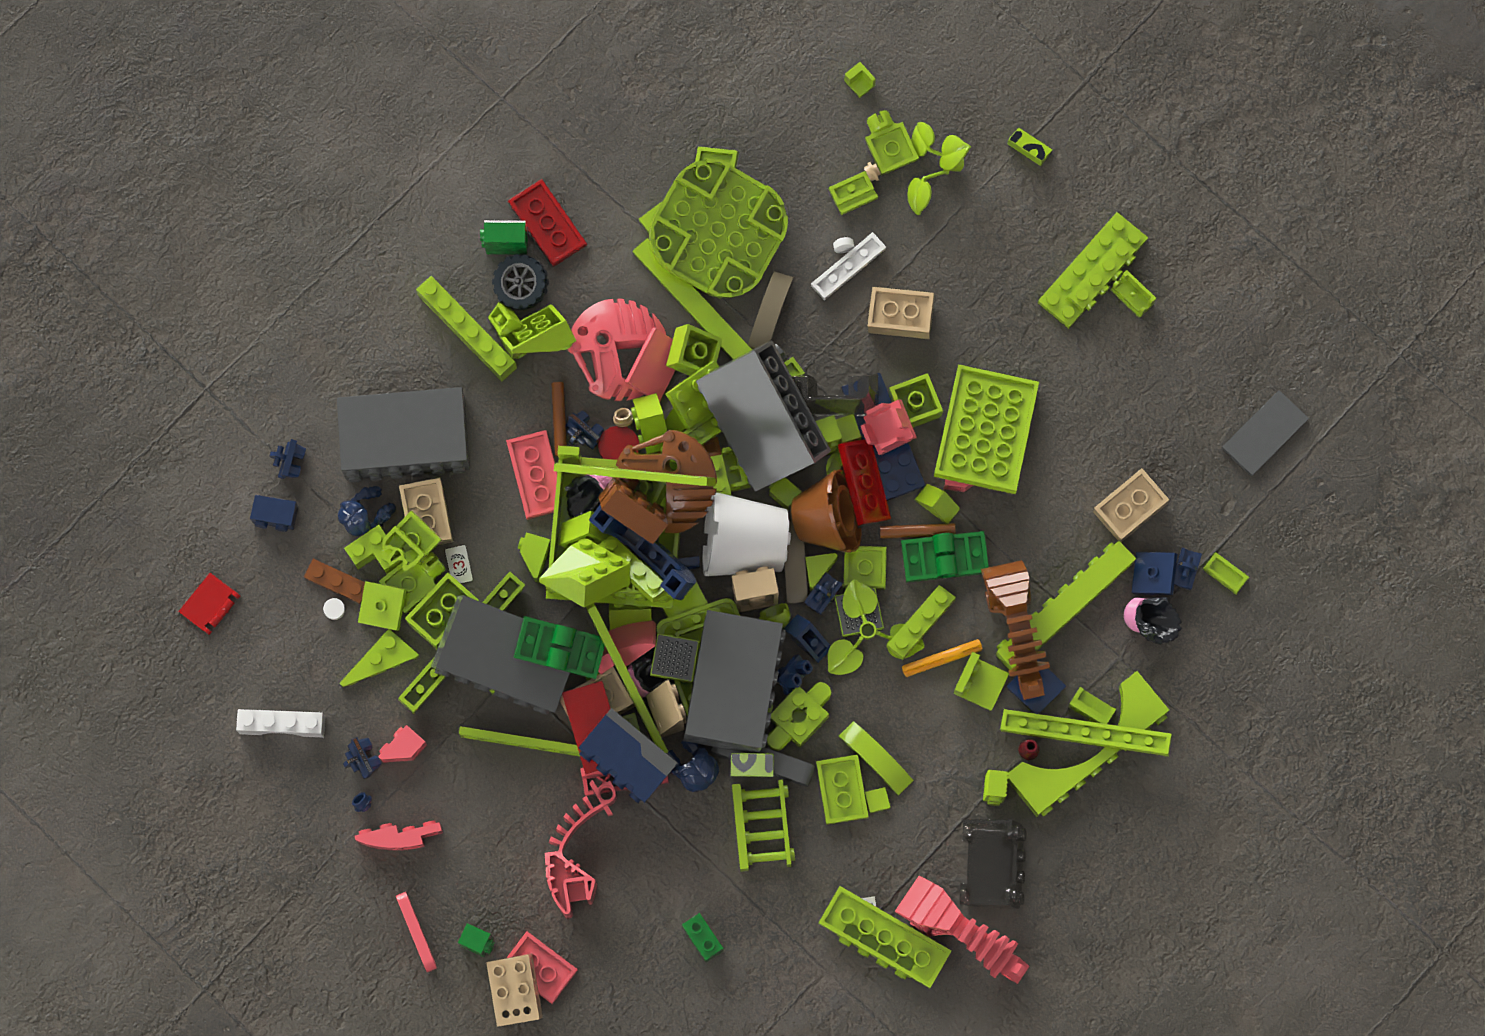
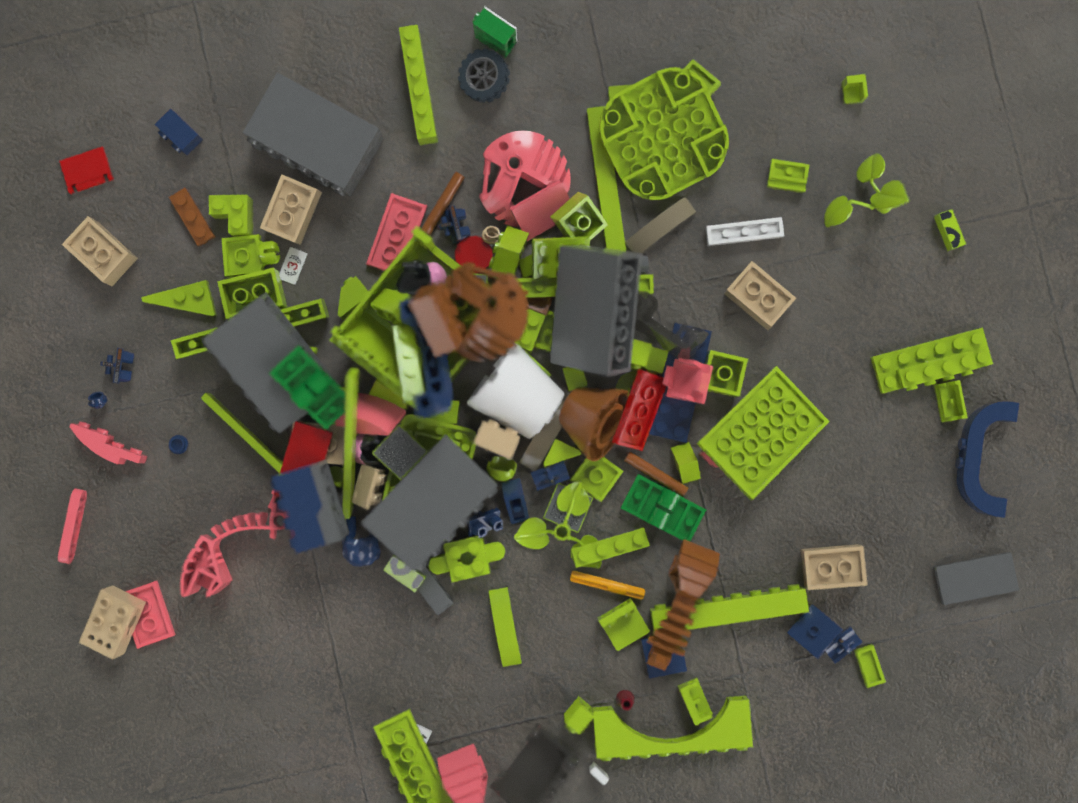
camera: 30 degrees right, 10 degrees up
(274, 665) = (99, 251): none -> tan piece
(288, 722) = (75, 299): white arch -> none
(292, 451) = (223, 92): dark blue hips -> none
(334, 609) = (176, 237): white tile -> none
(355, 516) = (232, 177): dark blue hair -> none
(382, 605) = (211, 259): lime plate -> none
(404, 747) = (156, 379): coral slope -> none
(410, 541) = (259, 224): lime plate -> none
(464, 793) = (178, 444): none -> dark blue plate
(476, 940) = (108, 565): green brick -> none
(504, 319) = (451, 97): lime slope -> none
(540, 332) = (467, 125): lime slope -> none
(547, 223) = (536, 42): red tile -> none
(587, 573) = (367, 345): lime slope -> none
(635, 474) = (458, 292): lime tile -> none
(691, 562) = (464, 382): dark blue tile -> none
(702, 937) = (280, 677): green brick -> none
(745, 837) = (374, 605): lime fence -> none
(842, 789) = (462, 634): lime plate -> none
(843, 245) = (752, 212): white tile -> none
(872, 171) = (814, 169): tan plate -> none
(877, 800) = (484, 660): lime tile -> none
(889, 143) = (843, 155): lime plate -> none
(1050, 829) = (598, 773): none -> white tile
(1086, 732) = (677, 722): lime plate -> none
(1153, 619) = (789, 667): black hair -> none
(1185, 334) = (970, 456): none -> dark blue arch

